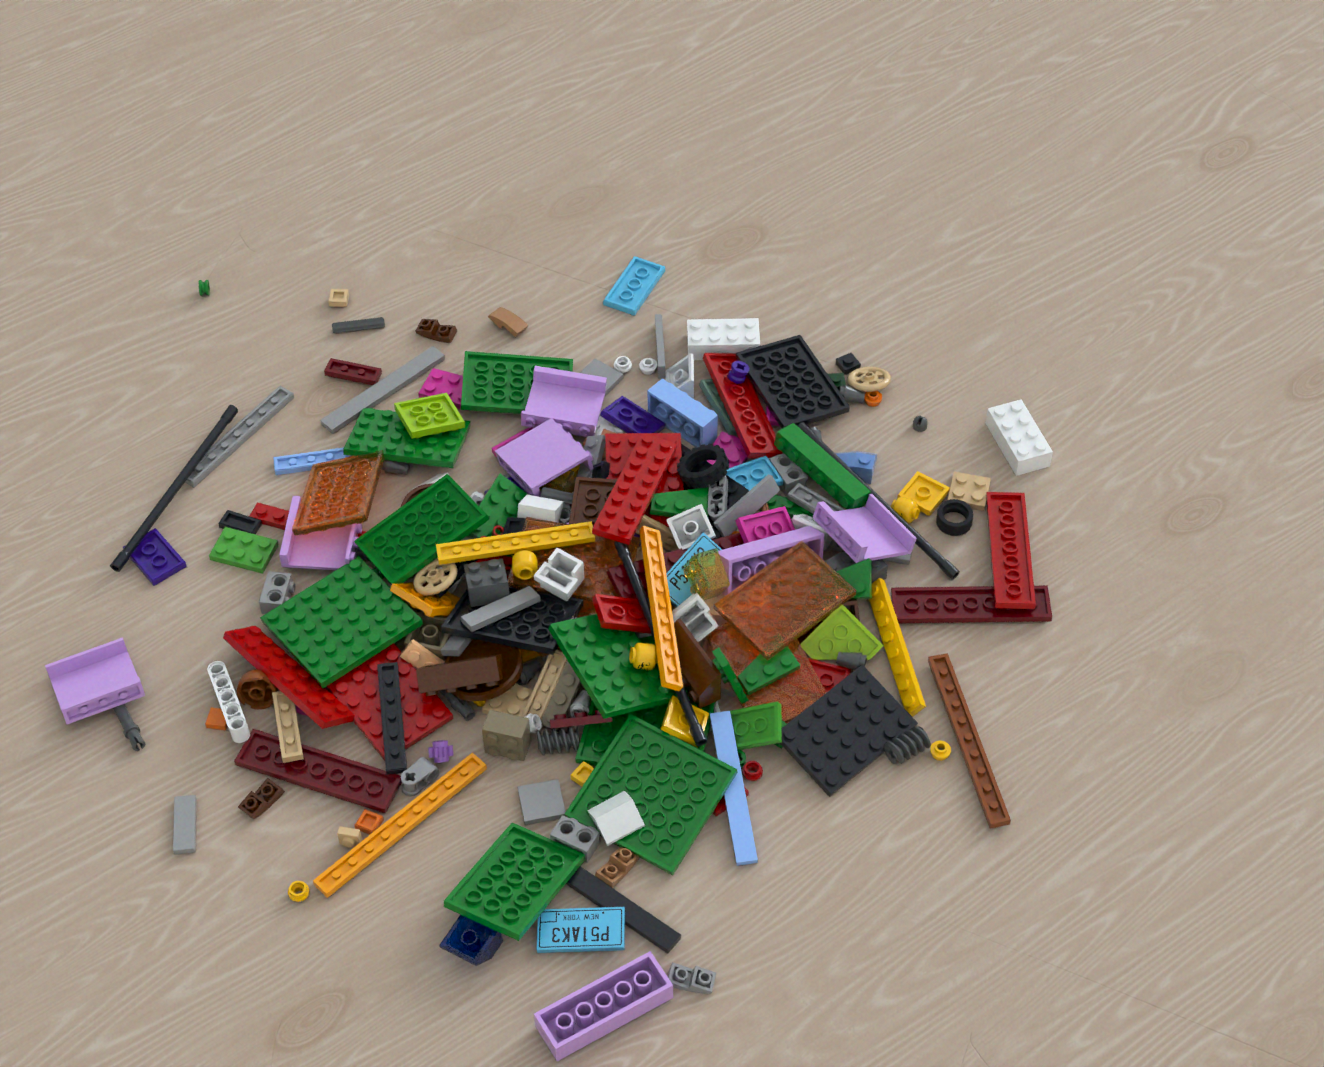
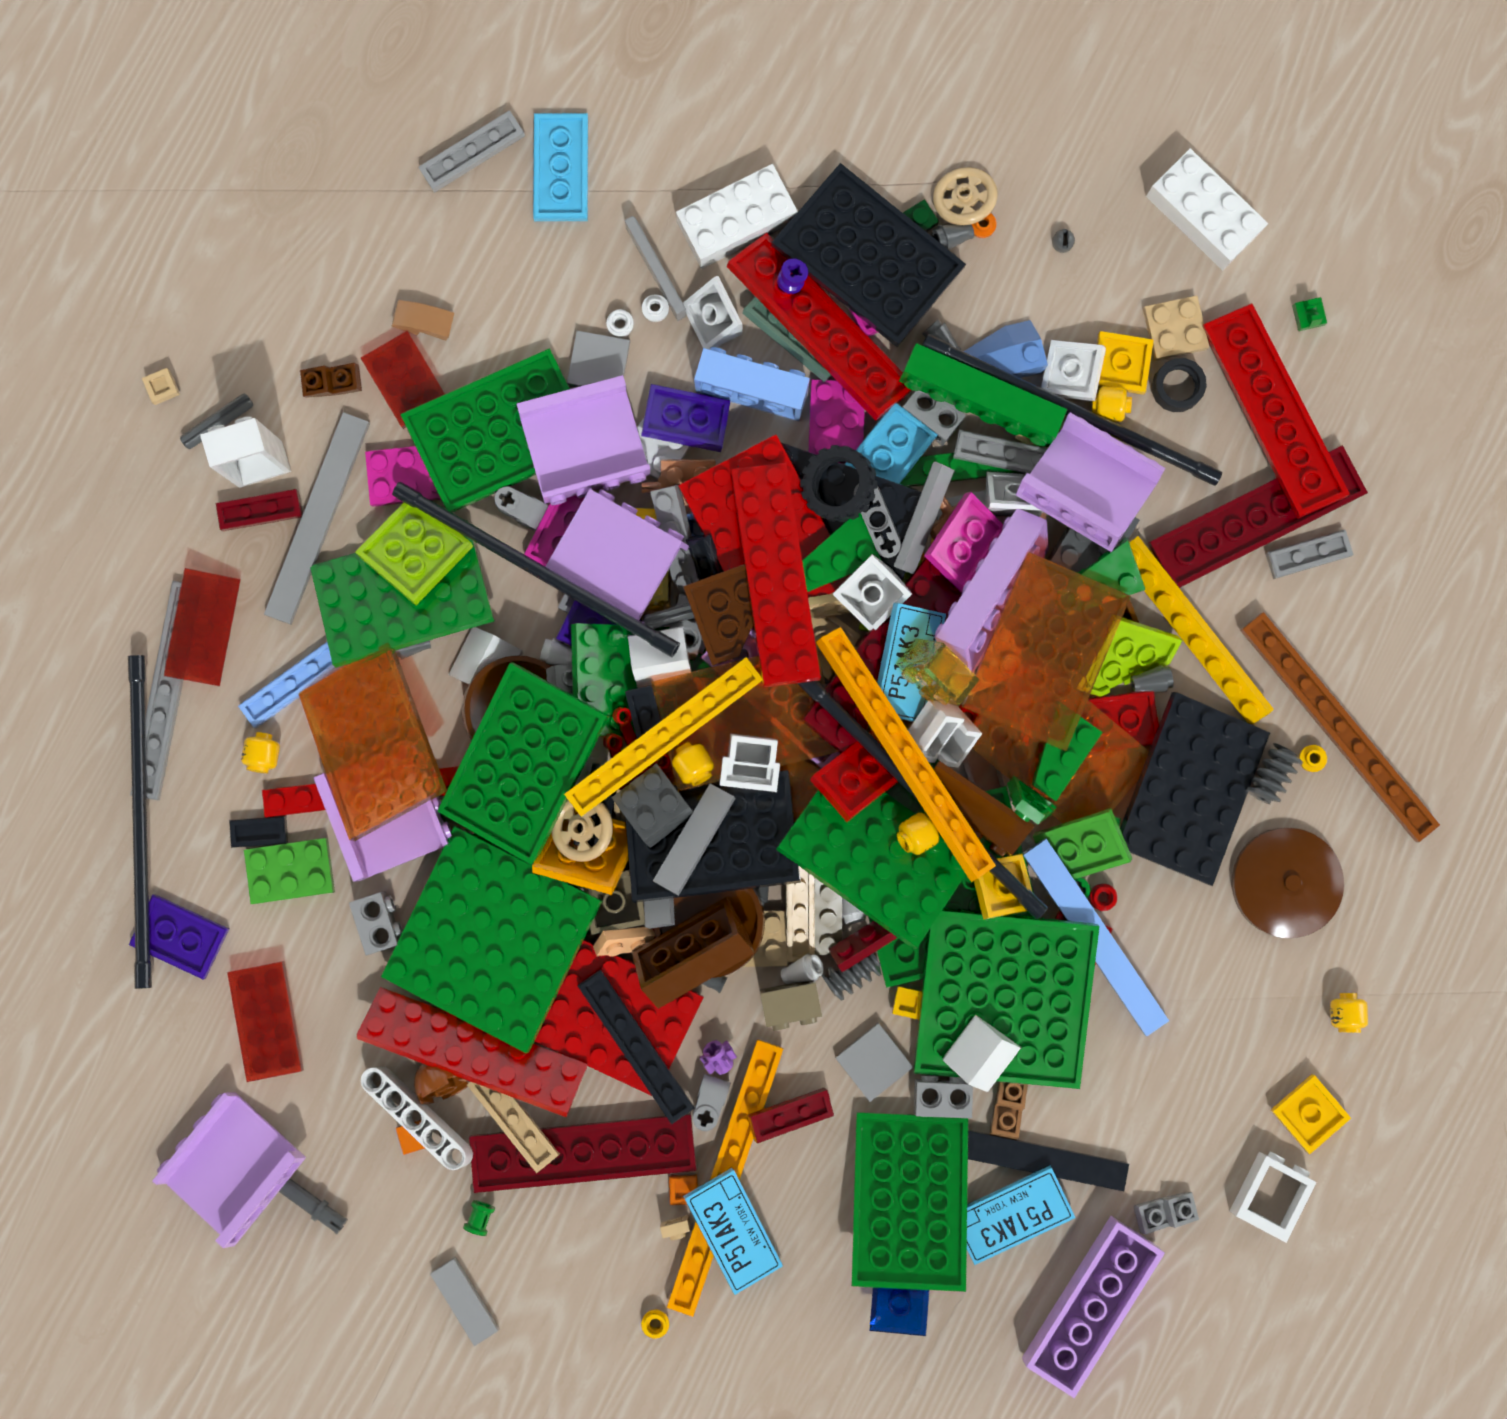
camera: 30 degrees left, 35 degrees up
(173, 618) = (265, 1021): none -> clear red plate
(227, 778) = (479, 1218): none -> green bush
(262, 799) = (535, 1223): reddish brown slope -> none
(269, 482) = (260, 753): none -> yellow head
(280, 412) = (202, 627): none -> clear red plate
(364, 330) = (245, 452): none -> white piece
(385, 853) = (733, 1231): none -> medium azure tile
(467, 802) = (790, 1115): none -> dark red plate
(478, 338) = (402, 375): none -> clear red plate
(504, 423) = (525, 509): none -> light grey piece
(542, 493) = (653, 637): none -> black piece
(587, 259) = (471, 151): none -> light grey plate
(758, 1013) = (1251, 1185): none -> white window
(828, 959) = (1310, 1114): none -> yellow plate
(847, 363) = (921, 176): black plate -> none
(885, 816) = (1287, 882): none -> reddish brown dish
(887, 905) = (1349, 1013): none -> yellow head
(890, 482) = (1073, 369): none -> white plate
(997, 639) = (1309, 554): none -> light grey tile
(1061, 514) = (1309, 314): none -> green tile

